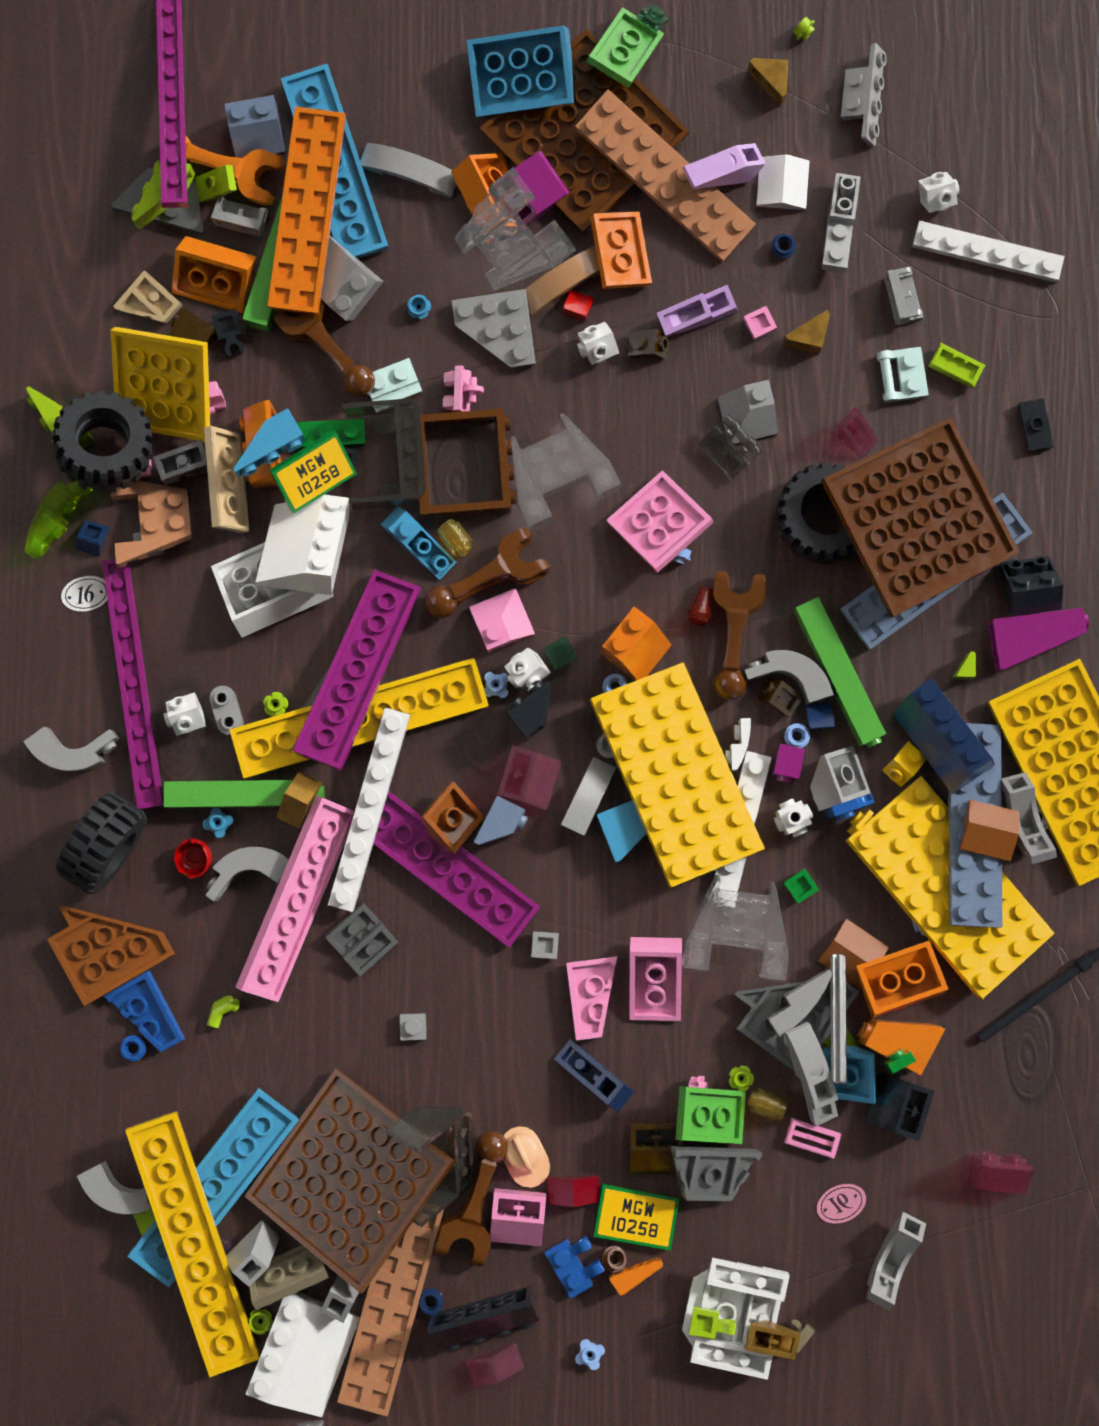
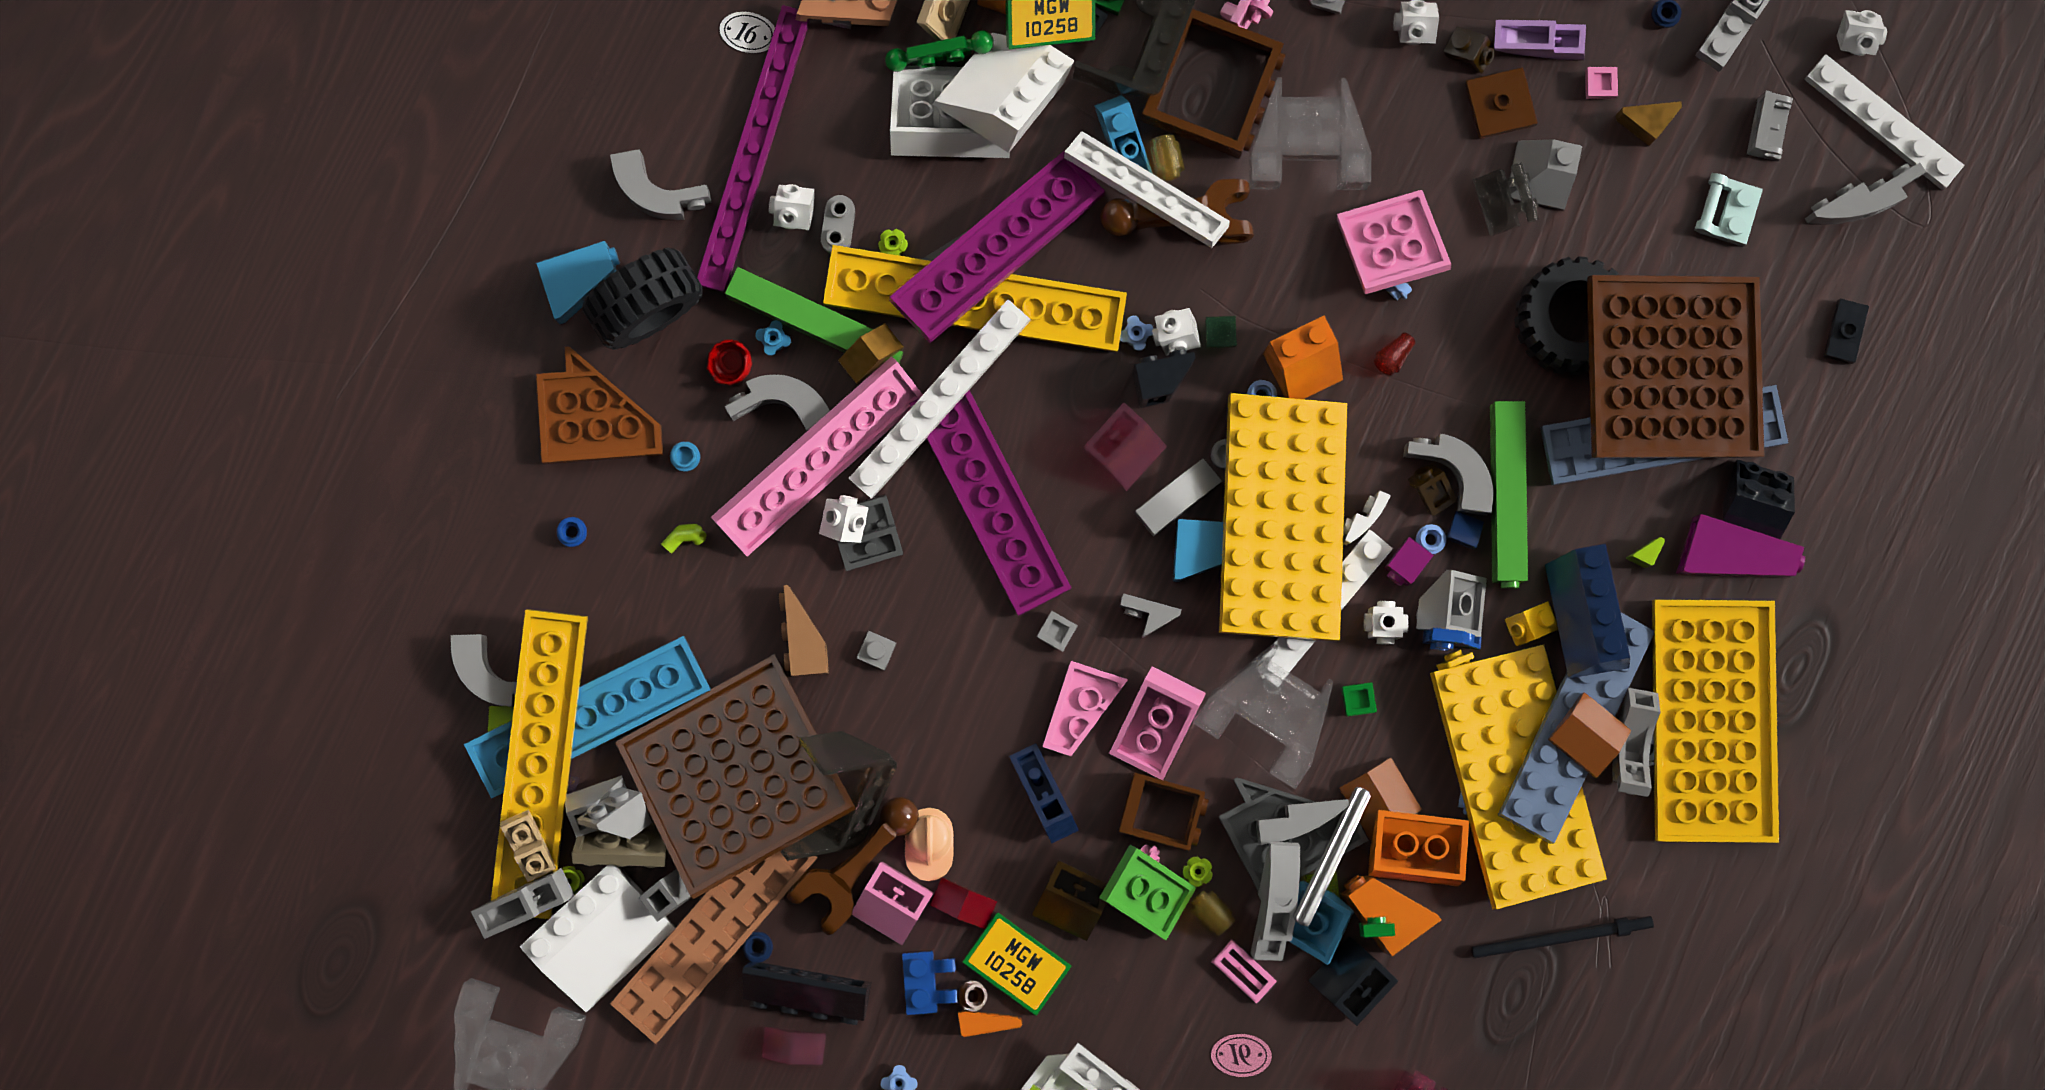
camera: 20 degrees right, 0 degrees up
(40, 848) = (574, 275): none -> dark azure slope
(148, 1010) = (606, 497): blue wing -> none
(193, 947) = (685, 456): none -> dark azure plate
(214, 1311) = (528, 845): none -> tan slope
(232, 1358) = (523, 903): none -> light grey slope
(249, 534) = (950, 49): none -> green plate
(274, 1254) = (618, 814): none -> light grey slope
(339, 939) = (843, 519): none -> white brick
(357, 1049) = (806, 646): none -> medium nougat slope
(451, 571) = (1146, 189): none -> white plate
(451, 818) = (1022, 450): dark orange slope -> none
(501, 822) = (1073, 478): sand blue slope -> none
(502, 620) = (1174, 268): bright pink slope -> none
(616, 895) = (1157, 613): none -> light grey slope
(666, 1053) = (1198, 809): none -> reddish brown window
(691, 374) = (1501, 103): none -> reddish brown plate
(712, 1172) = (1120, 953): dark grey wing -> none
(730, 681) = (1387, 447): reddish brown piece -> none
(856, 433) = (1649, 247): clear pink slope -> none
(956, 365) = (1791, 227): lime plate -> none
(1001, 319) = (1864, 201): none -> light grey slope

